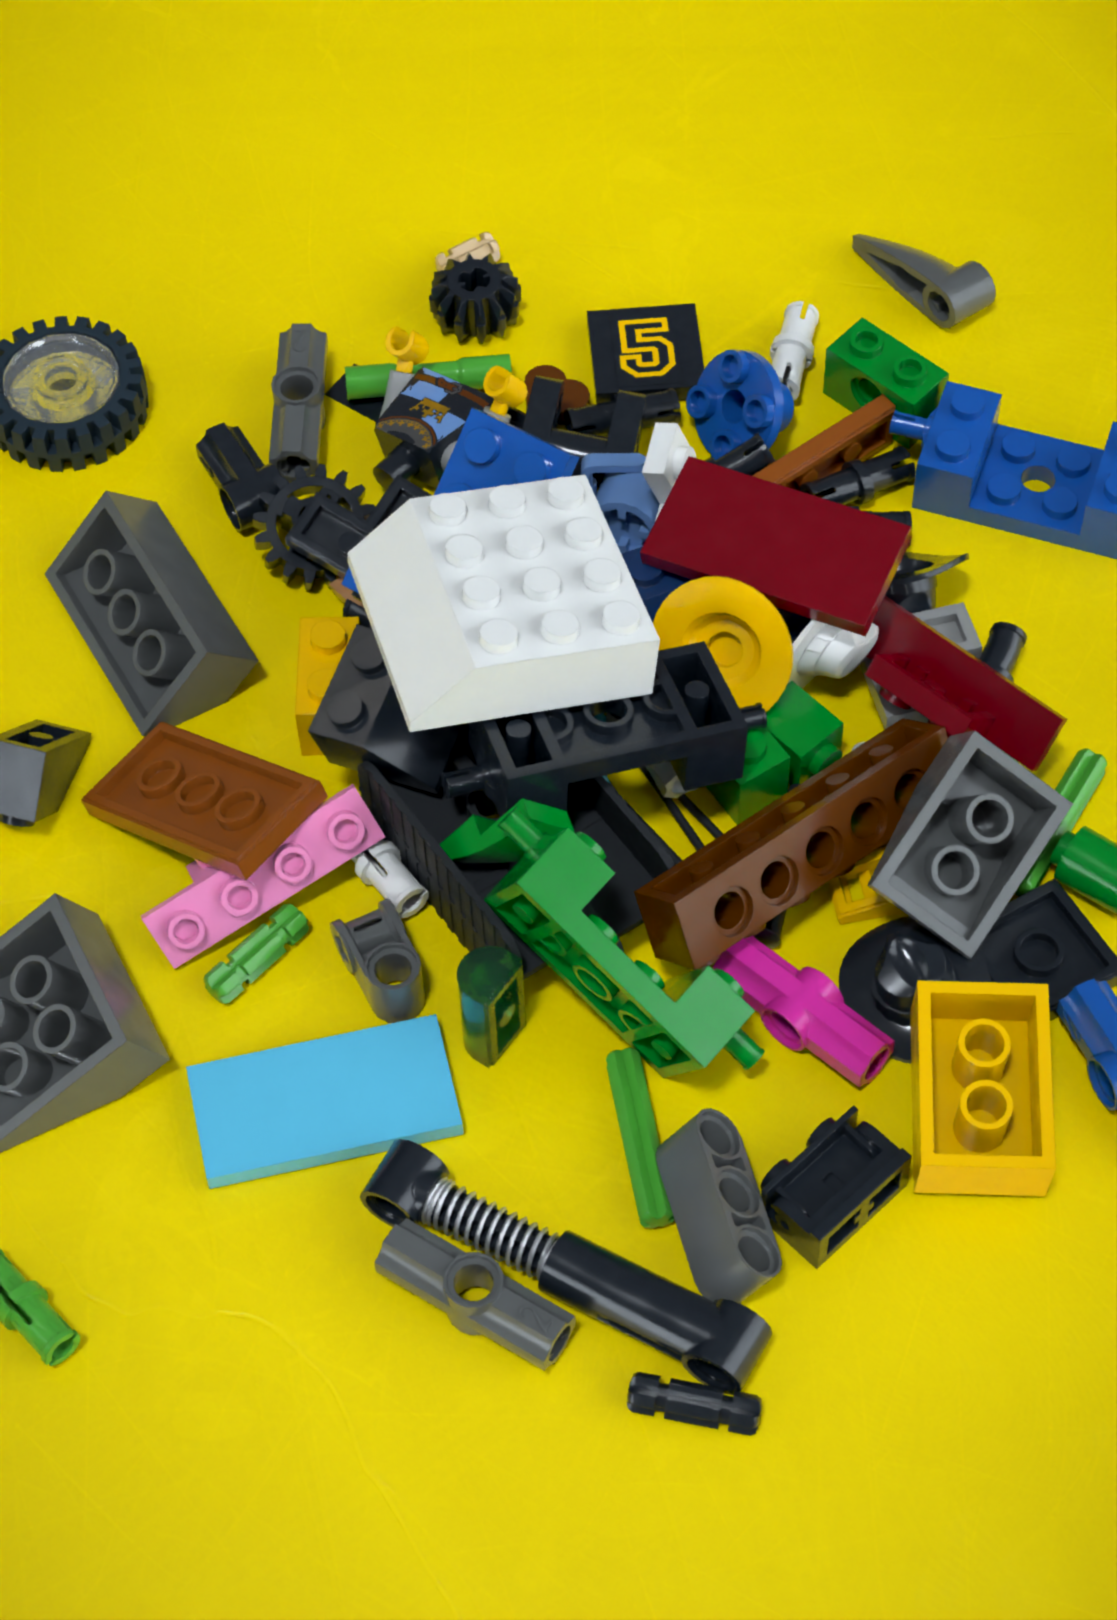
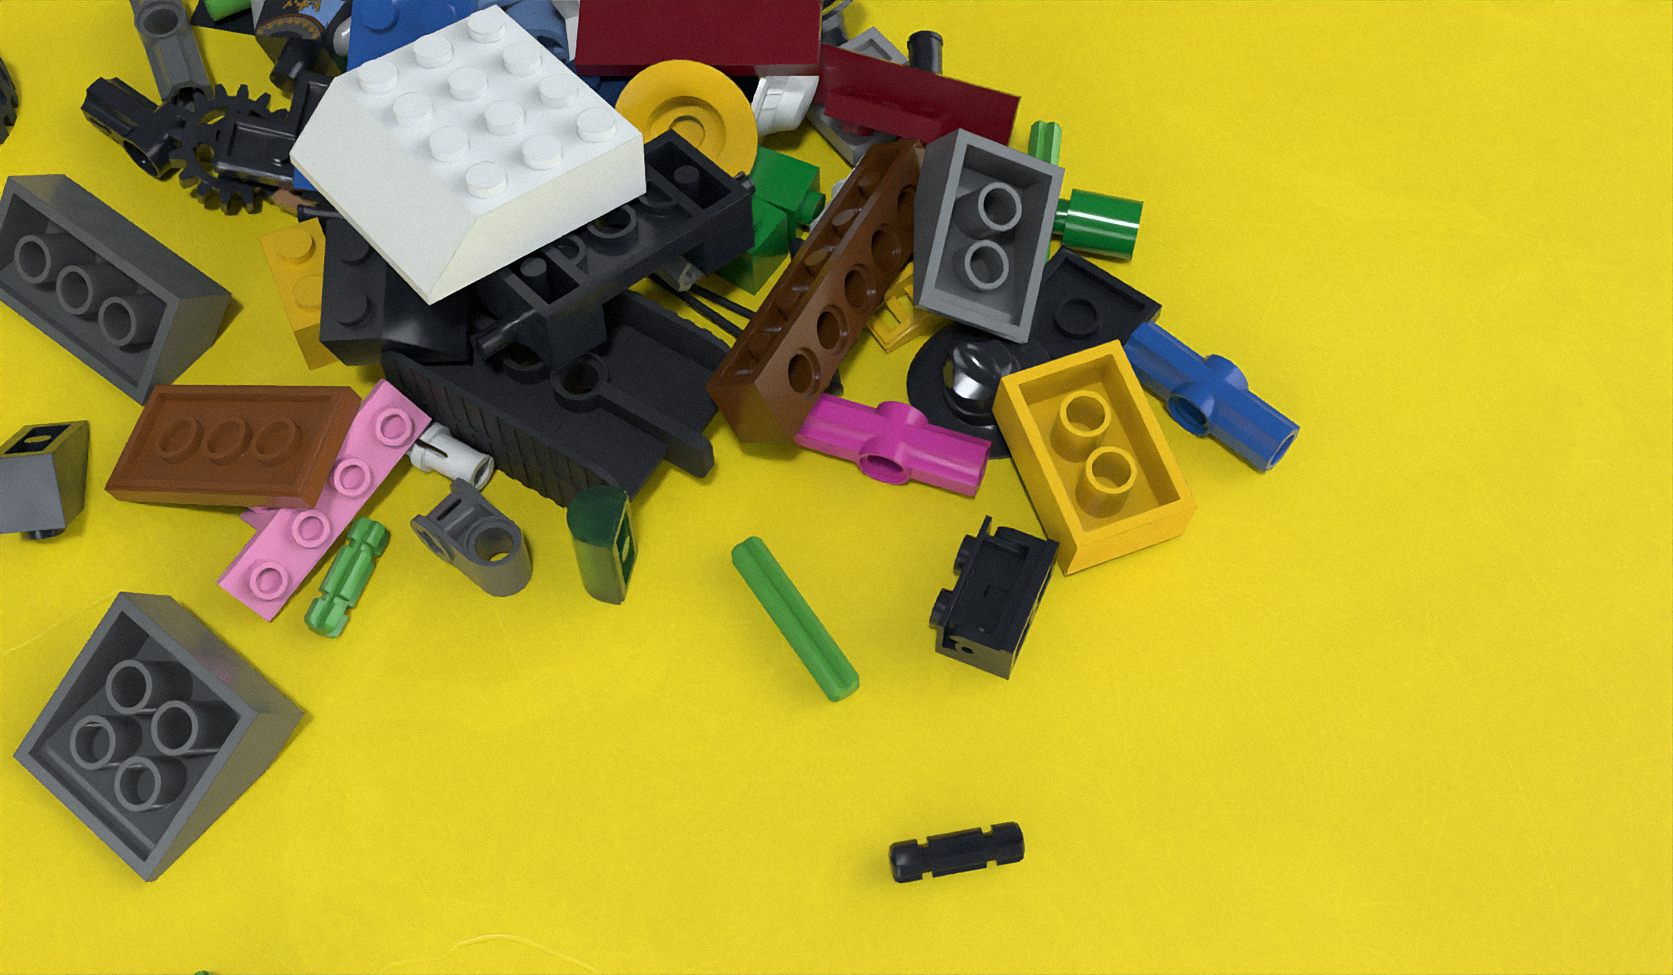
camera: 25 degrees left, 5 degrees up
(323, 1101) = (473, 697): medium azure tile -> none
(483, 842) = (570, 372): green slope -> none
(507, 1315) = (661, 822): dark grey piece -> none
(670, 1023) = (632, 429): green brick -> none
(710, 1338) = (948, 784): black piece -> none
(718, 1208) = (902, 659): dark grey beam -> none

